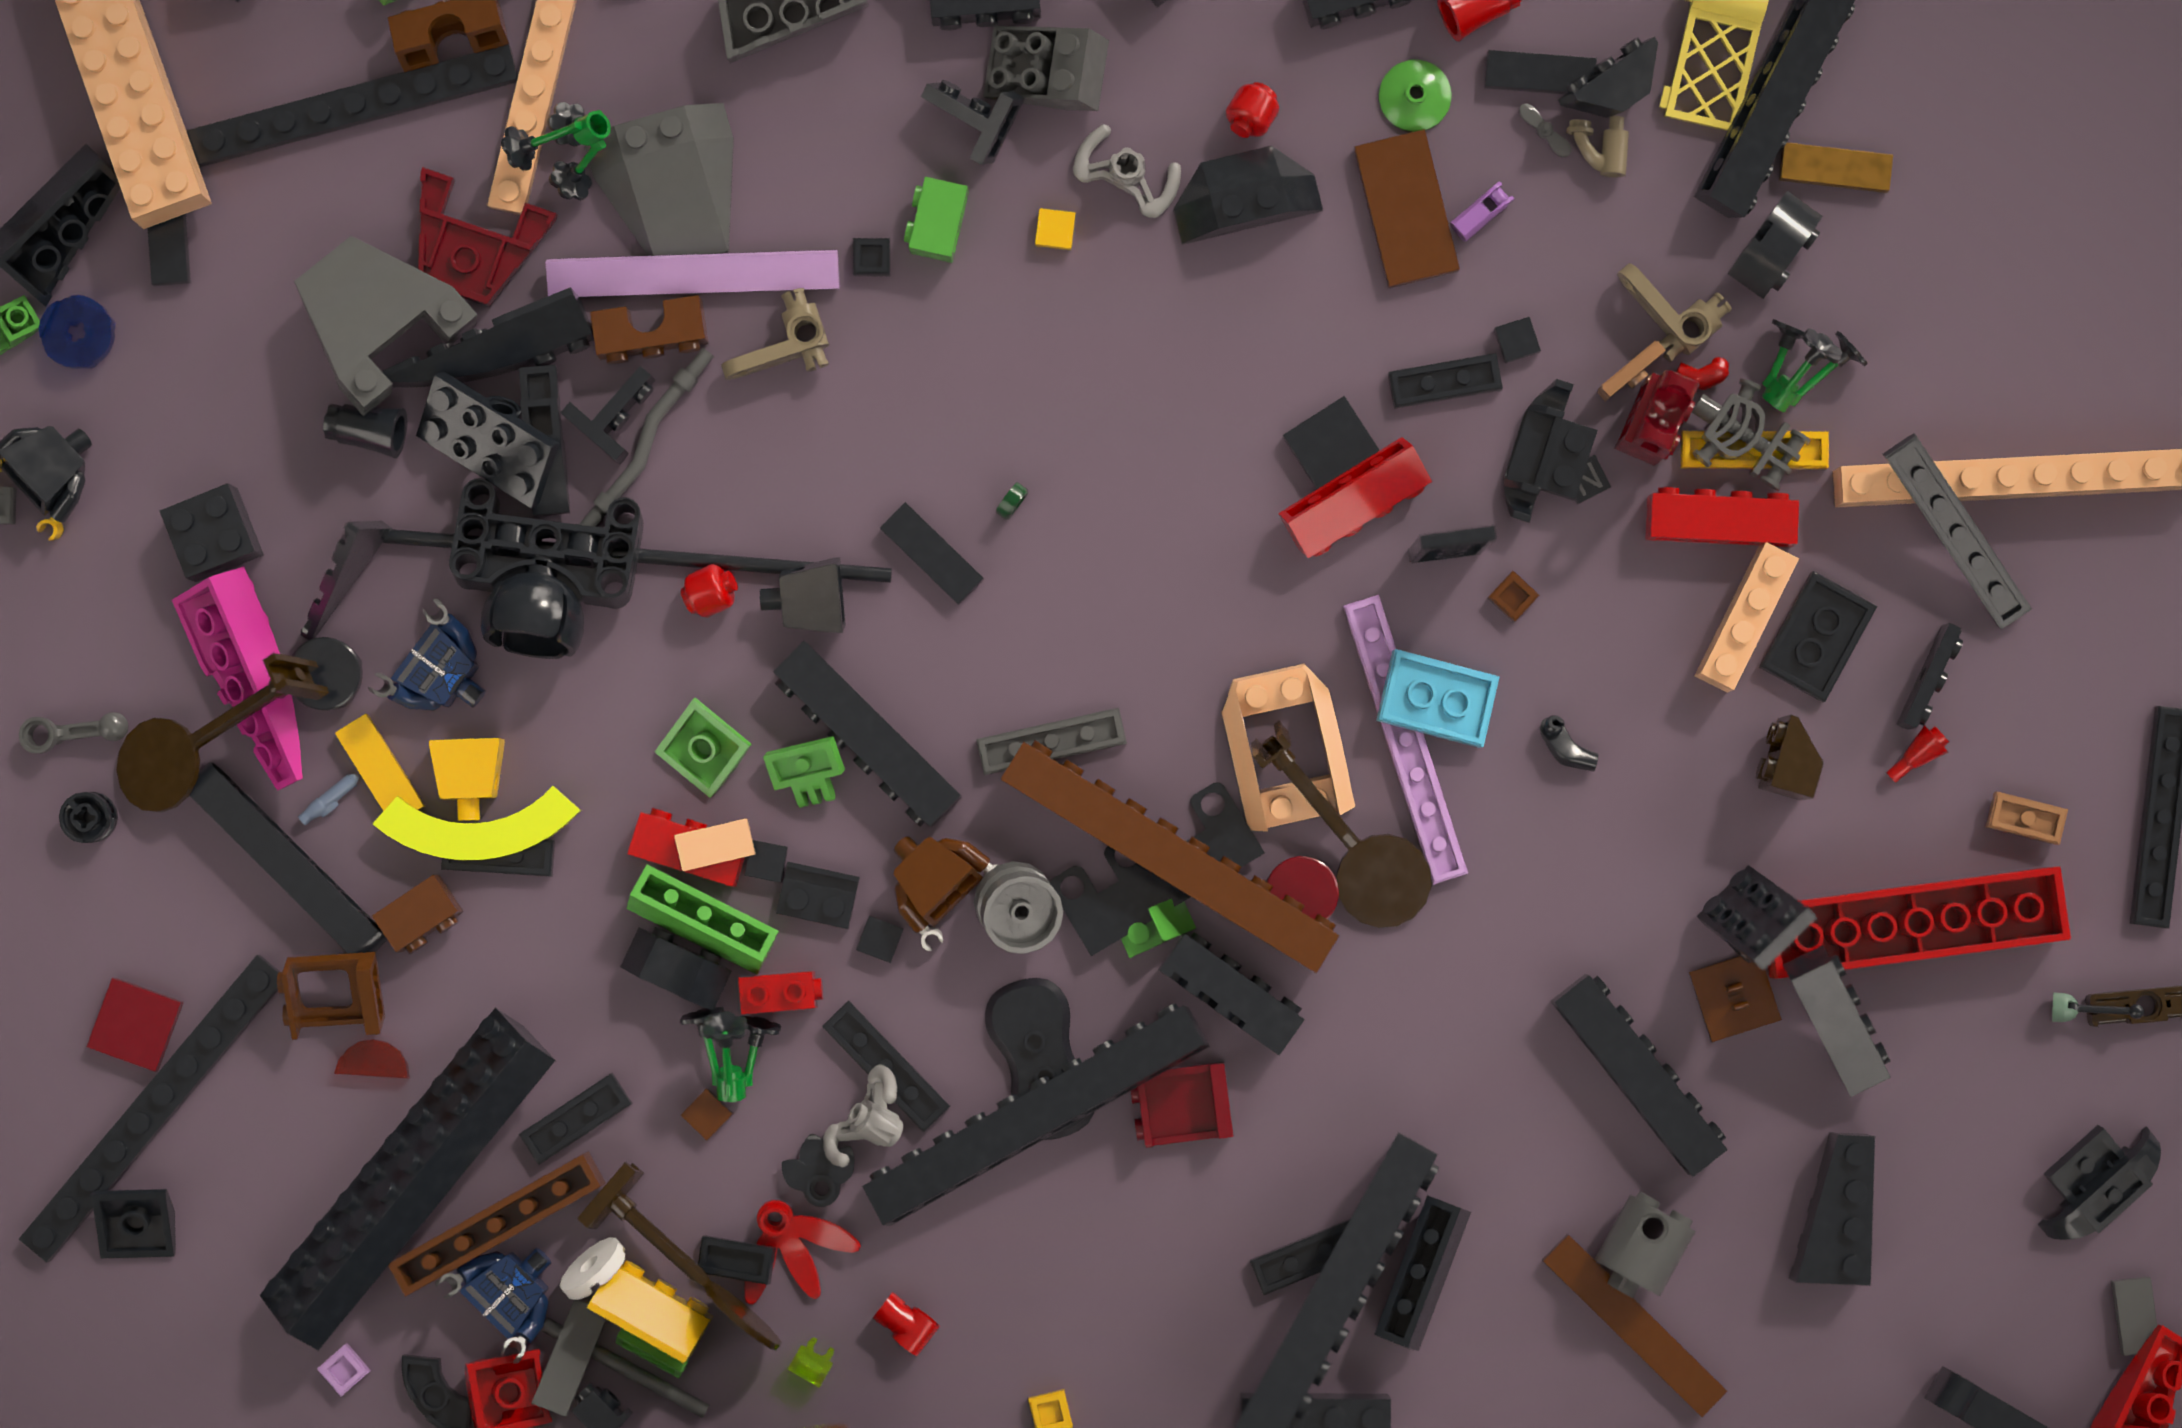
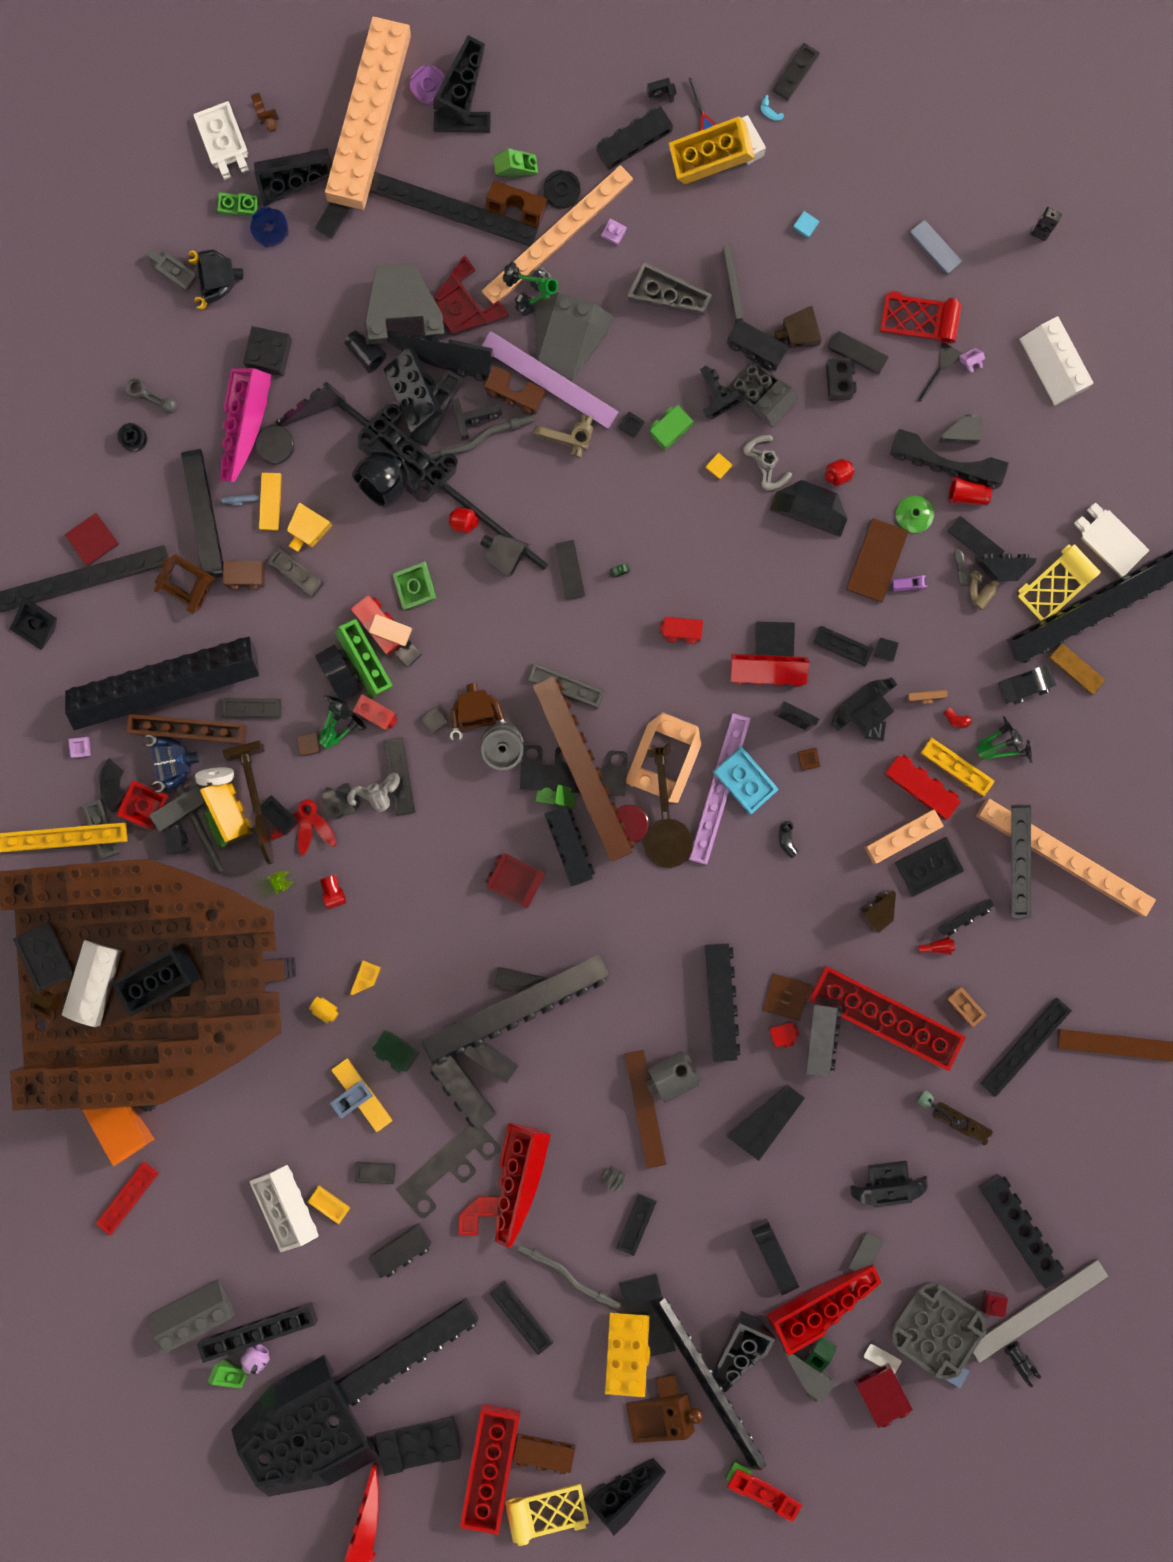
camera: 35 degrees right, 0 degrees up
(162, 757) = (181, 432): dark brown piece -> none
(373, 1059) = (182, 623): clear red tile -> none
(436, 667) = (323, 474): dark blue torso -> none
(477, 840) = (290, 559): neon yellow tile -> none
(806, 769) = (452, 625): bright green hinge -> none
(818, 895) = (420, 683): black plate -> none
(867, 734) = (488, 627): black brick -> none
(1032, 1032) = (463, 832): black plate -> none
(1036, 1115) = (449, 840): black brick -> none
(1173, 527) = (681, 629): none -> red brick
(1422, 1273) = (568, 1023): black brick -> none
(1656, 417) = (924, 722): dark red brick -> none
(1705, 315) = (974, 692): dark tan piece -> none
(1717, 416) = (950, 739): dark grey piece -> none
(1756, 917) = (817, 967): black plate -> none
(1772, 1057) = (784, 1034): none -> red brick

